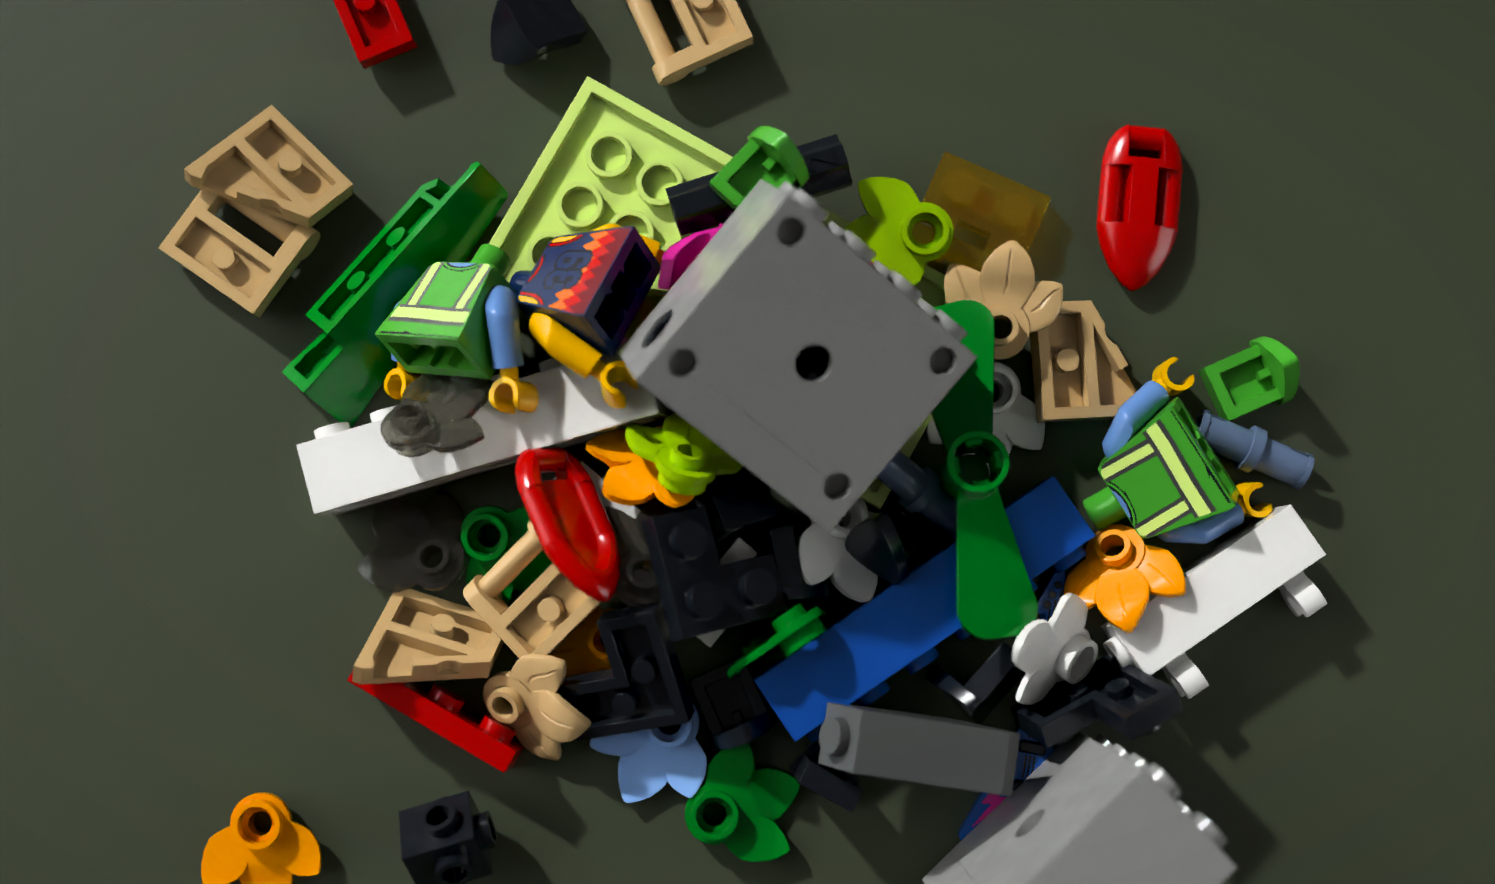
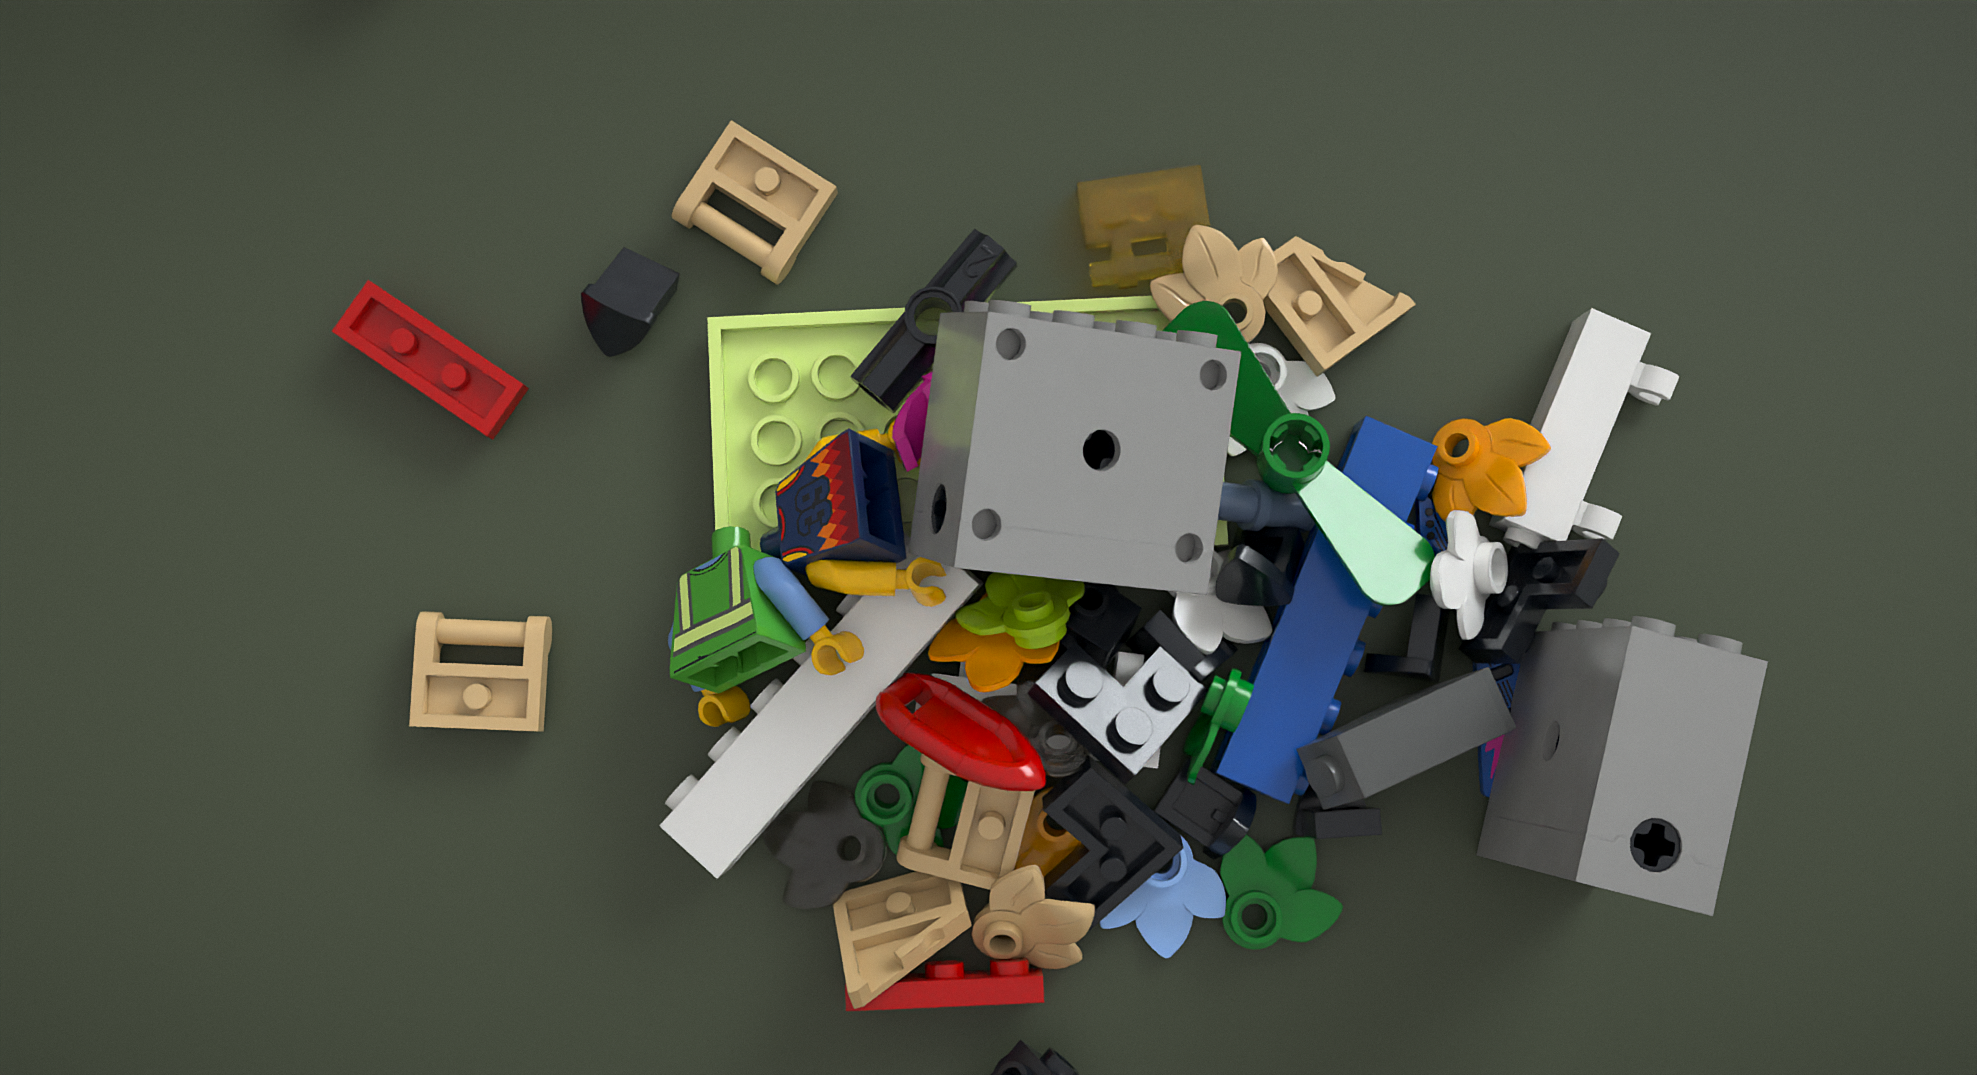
camera: 35 degrees left, 0 degrees up
(272, 171) = (470, 588): tan wing -> none
(435, 225) = (651, 548): green wedge -> none
(436, 415) = (776, 715): clear smoke plate -> none
(765, 156) = (929, 289): bright green tile -> none
(889, 222) = (1071, 276): lime plate -> none
(1139, 203) = (1281, 121): red piece -> none
(1166, 472) = (1462, 348): torso -> none
(1252, 378) = (1482, 216): bright green tile -> none
(1255, 451) = (1522, 280): sand blue pin -> none

